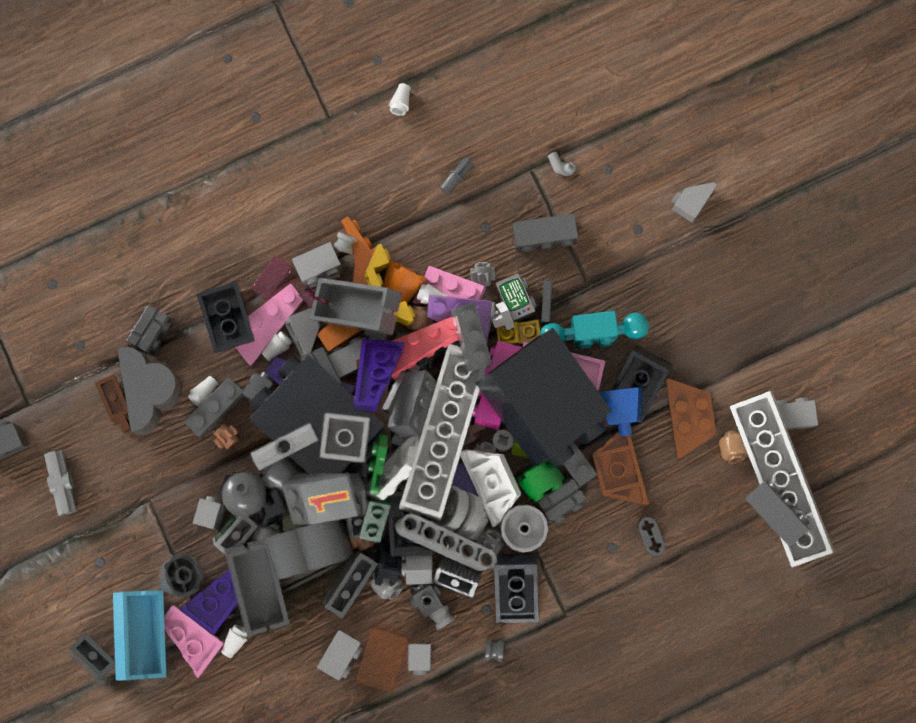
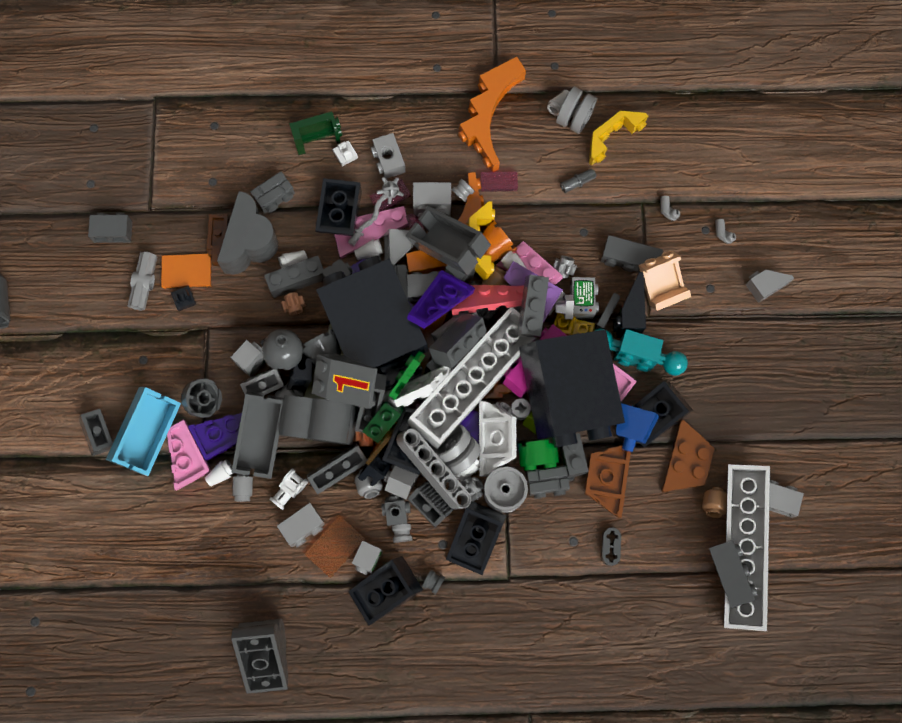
camera: 20 degrees right, 5 degrees down
(99, 451) = (186, 270): none -> orange piece
(110, 481) = (183, 298): none -> black tile
(161, 244) = (315, 129): none -> dark green panel
(203, 253) = (345, 153): none -> white tile
(259, 246) = (388, 146): none -> light grey brick
(264, 645) = (242, 488): none -> light grey brick
(269, 274) = (389, 190): none -> light grey piece
(271, 453) = (321, 324): light grey piece -> none
(310, 624) = (288, 488): none -> white connector
(326, 111) = (493, 86): none -> orange arch
(345, 437) = (388, 338): light grey brick -> none
(376, 212) = (499, 181): none -> clear pink tile
(381, 547) = (377, 447): none -> clear orange piece
(423, 103) = (577, 110): none -> light grey wheel
(451, 680) = (385, 590): none -> black slope
(484, 87) = (631, 120): none -> yellow slope
(571, 294) = (633, 310): none -> black slope
(588, 245) = (664, 280): none -> light nougat panel
(627, 167) = (722, 234): none -> light grey arm

